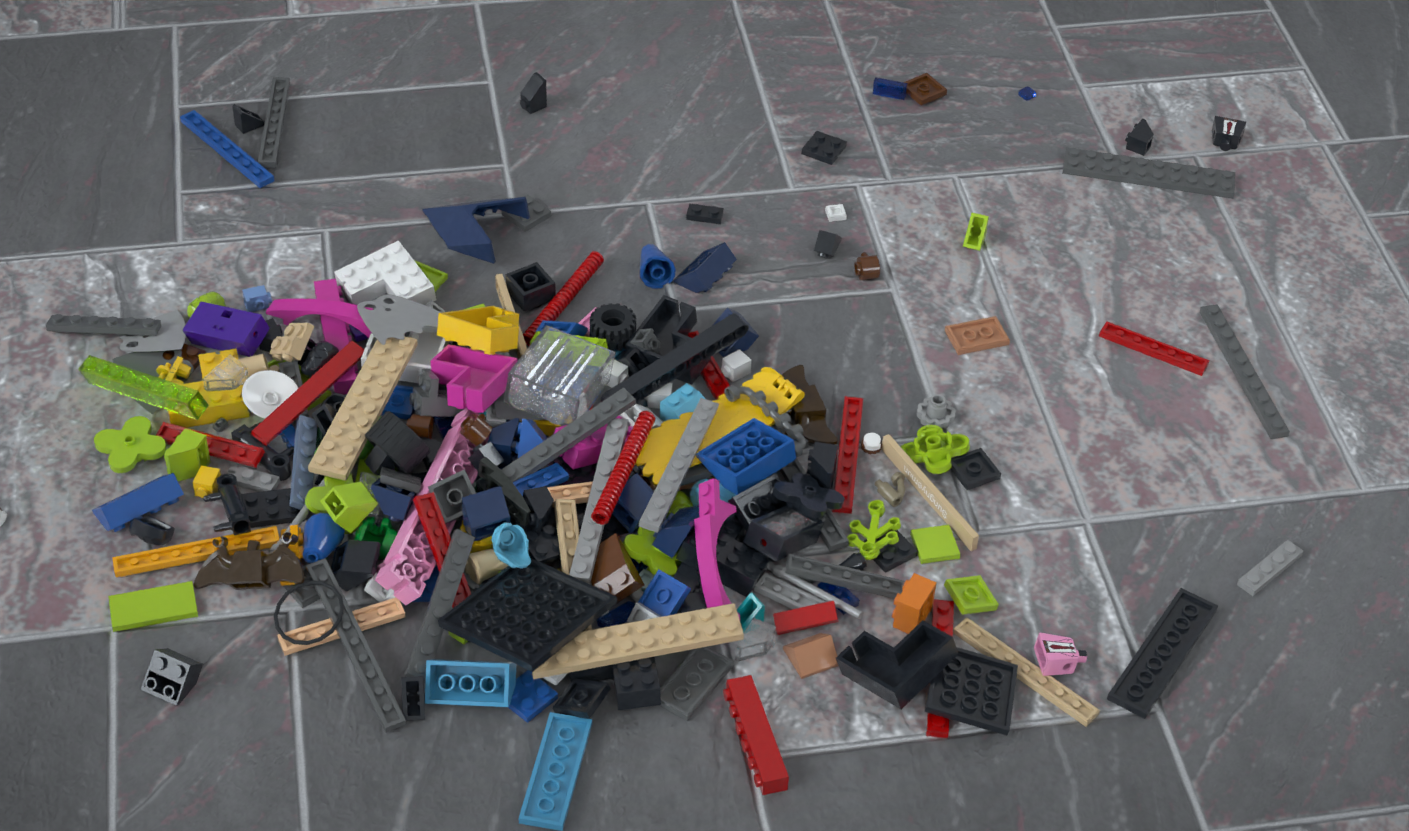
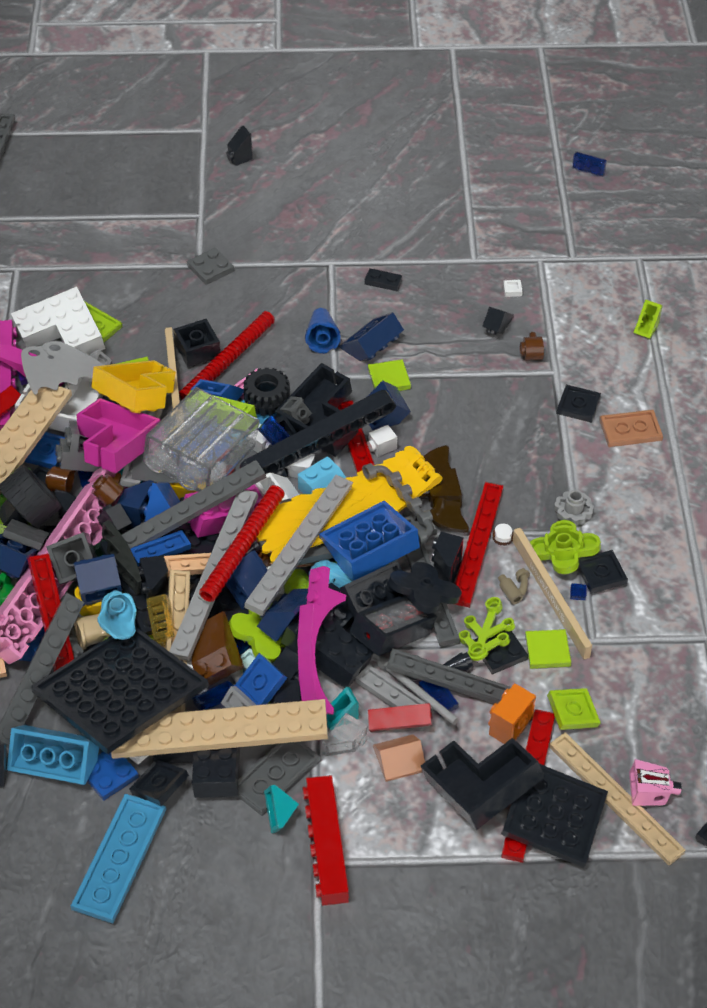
camera: 10 degrees right, 5 degrees up
(462, 231) = (142, 280): dark blue windscreen -> none
(550, 532) = (156, 605): none -> clear yellow slope
(628, 363) = (272, 431): none -> clear blue plate
(704, 709) = (279, 807): none -> teal slope
(732, 299) = (390, 372): none -> lime tile
(824, 147) = (513, 220): black plate -> none
(921, 316) = (578, 403): none -> black tile
(925, 89) = (624, 166): reddish brown plate -> none
(954, 489) = (578, 591): none -> clear blue piece

